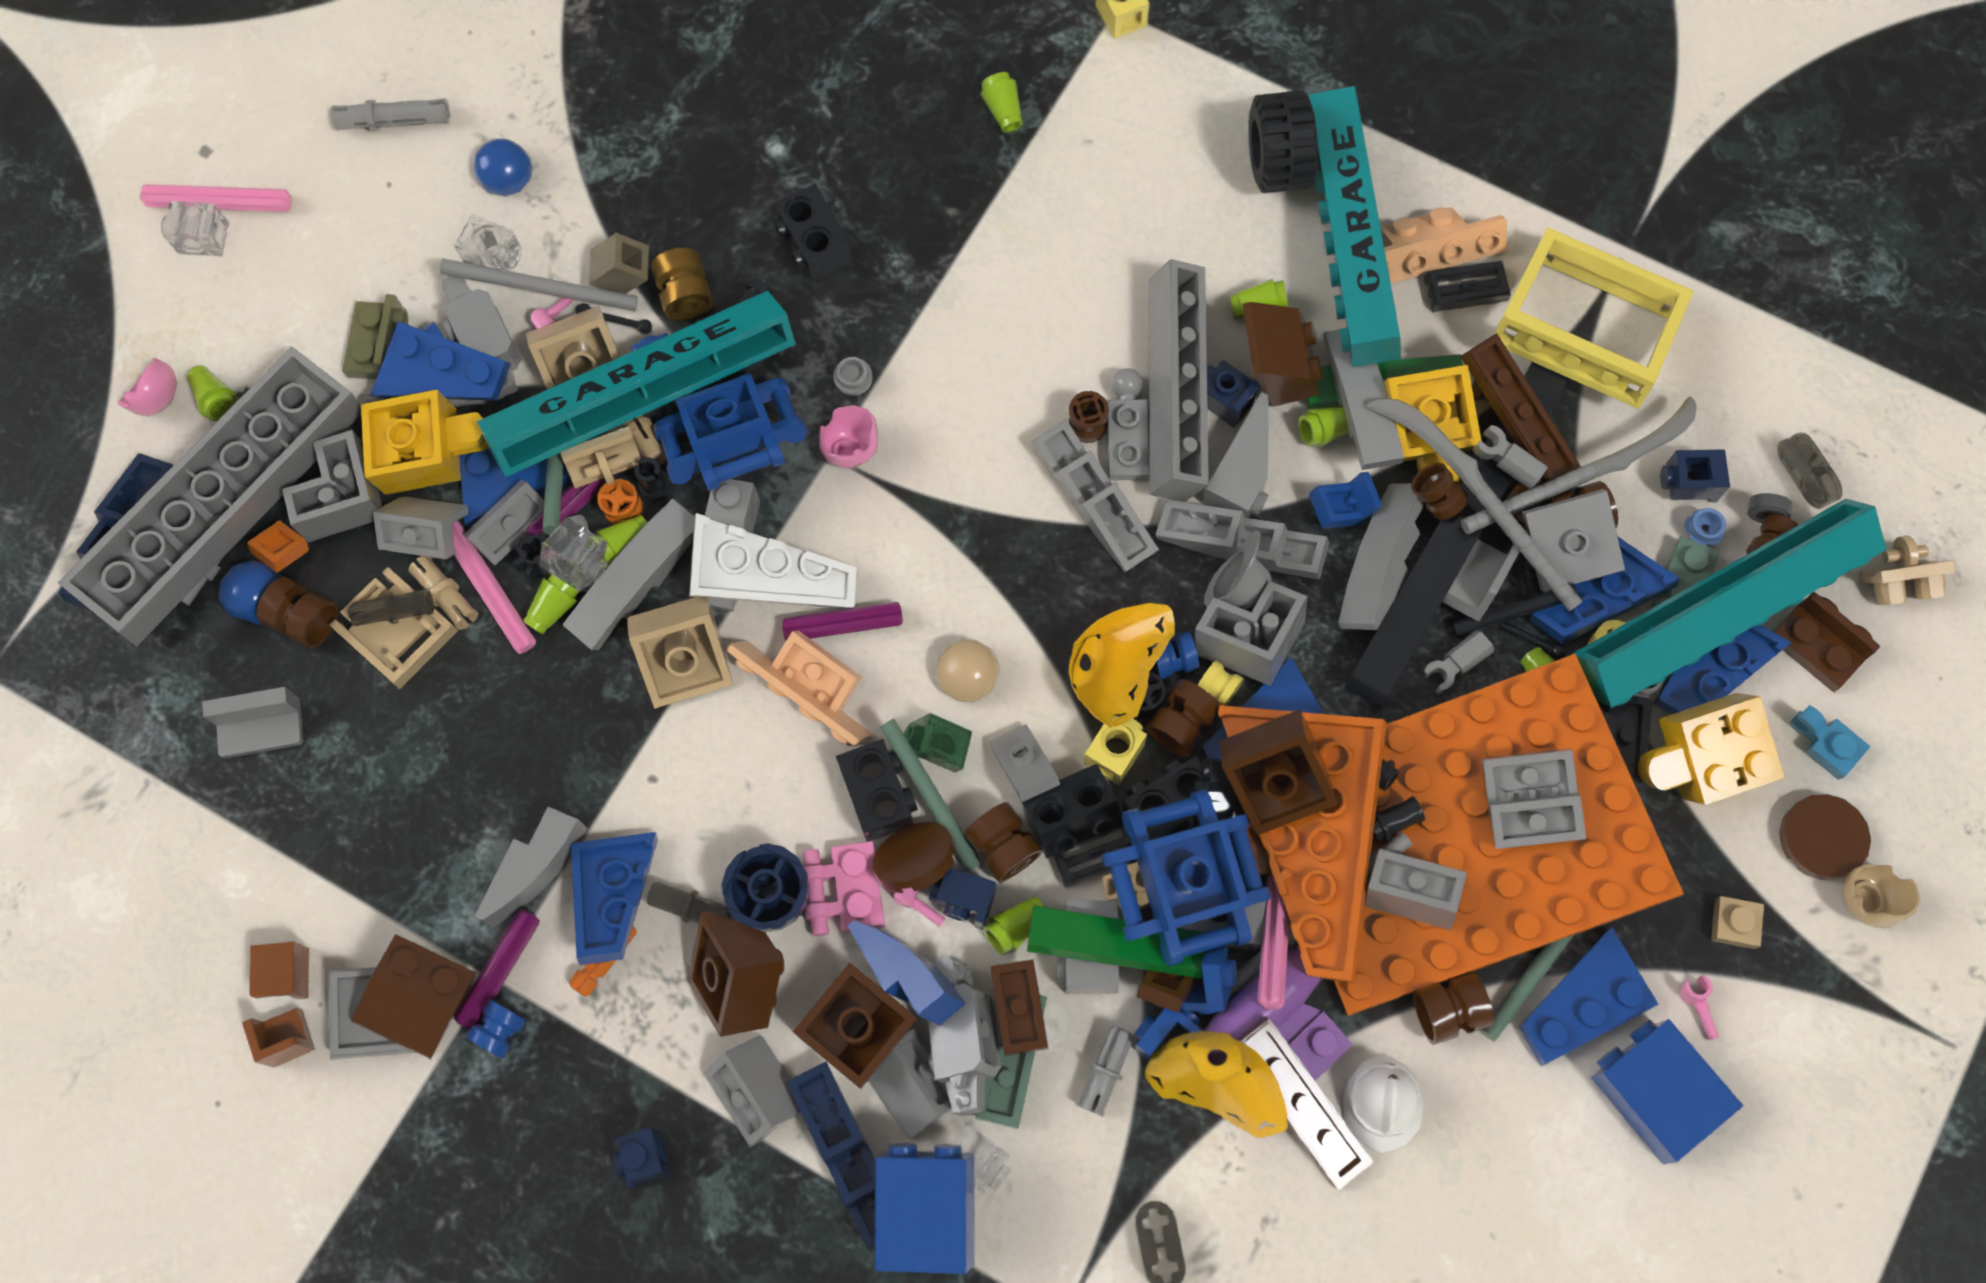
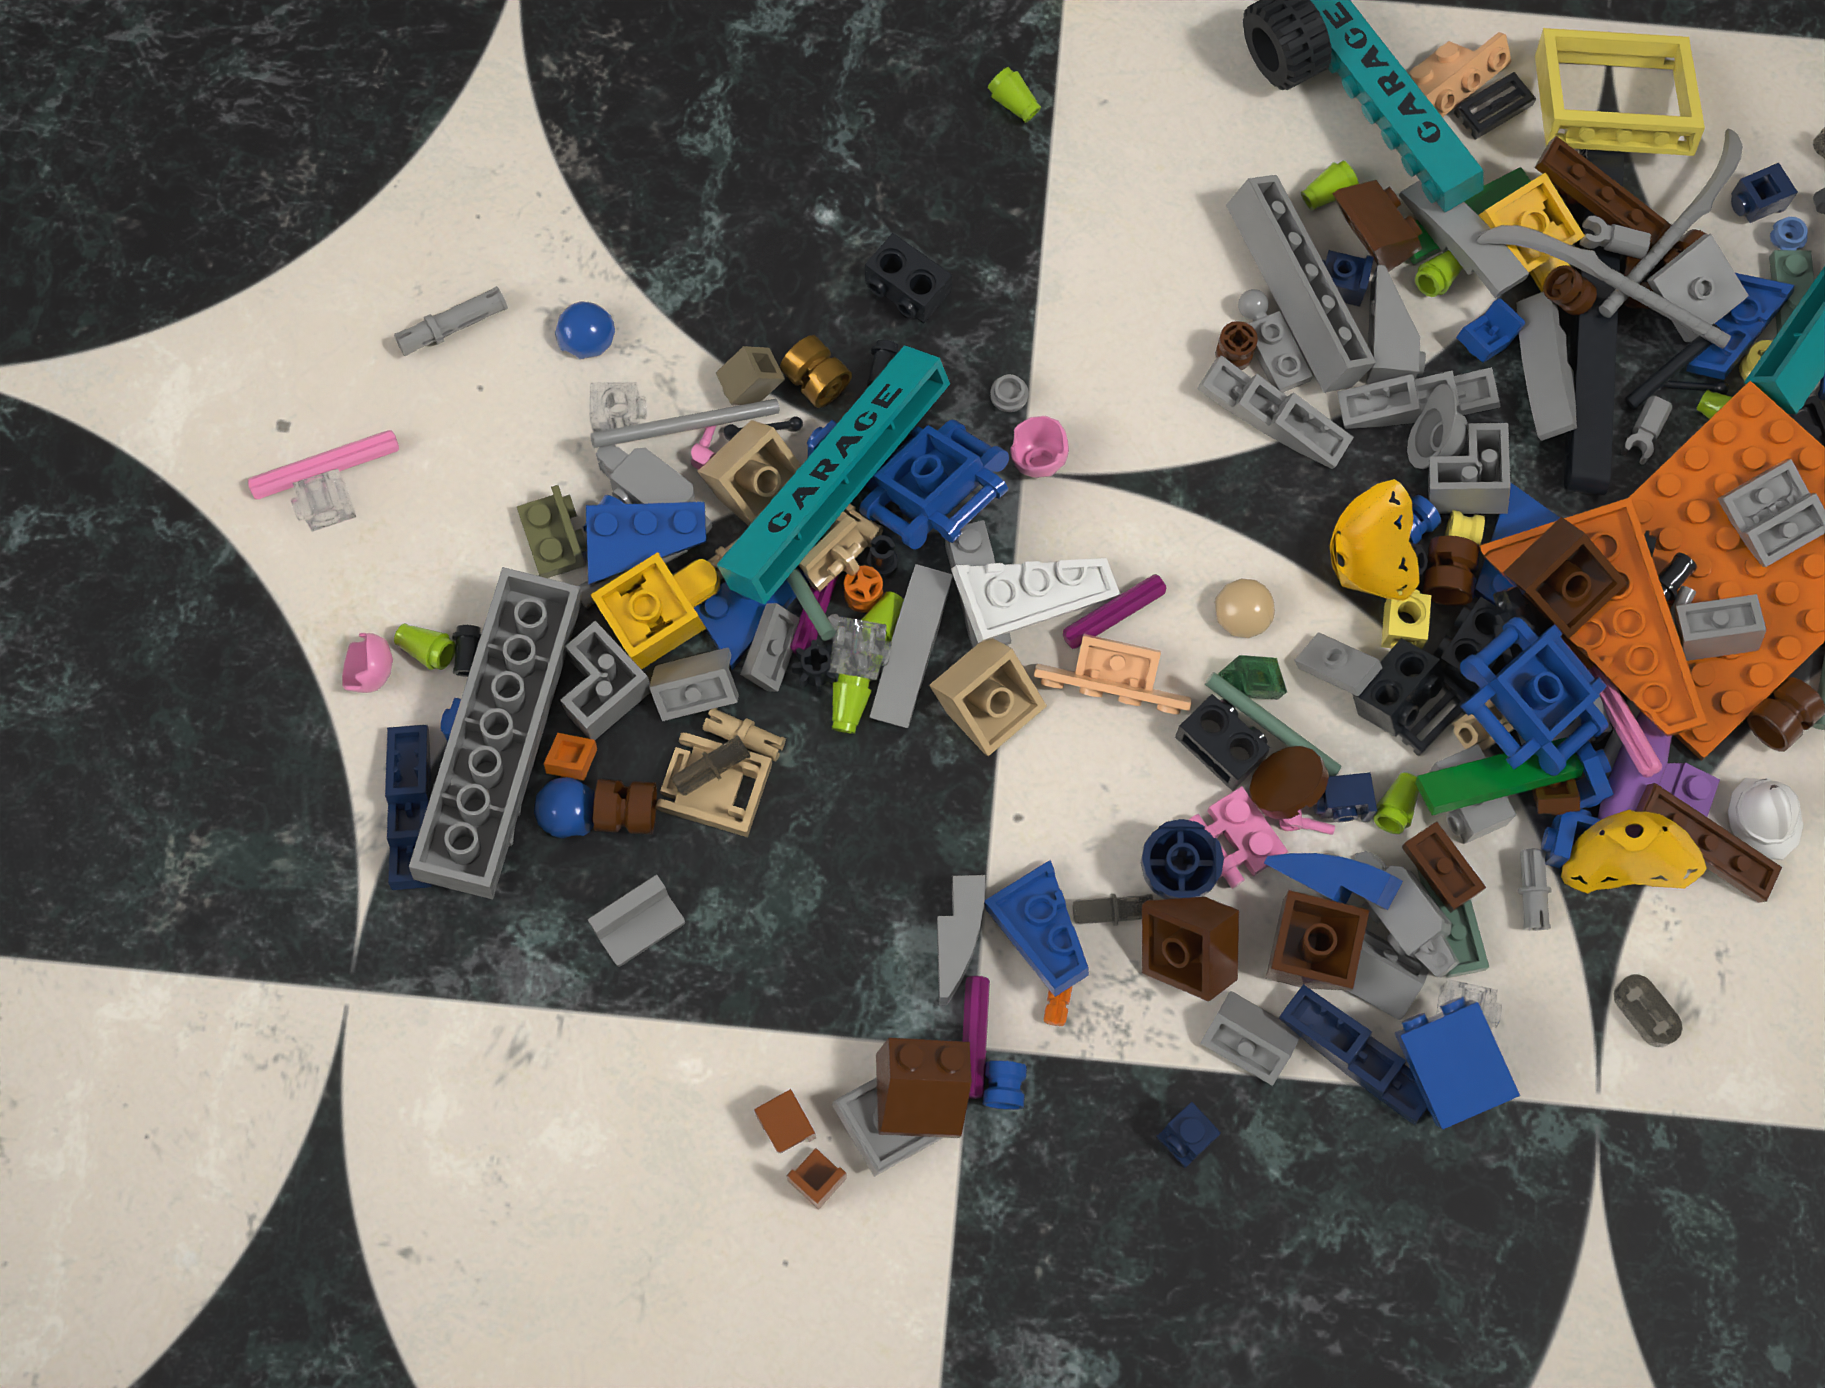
camera: 30 degrees left, 0 degrees up
(491, 592) = (791, 718): bright pink axle -> none
(1000, 838) = (1355, 738): reddish brown wheel -> none
(1480, 579) = (1638, 351): light grey panel -> none

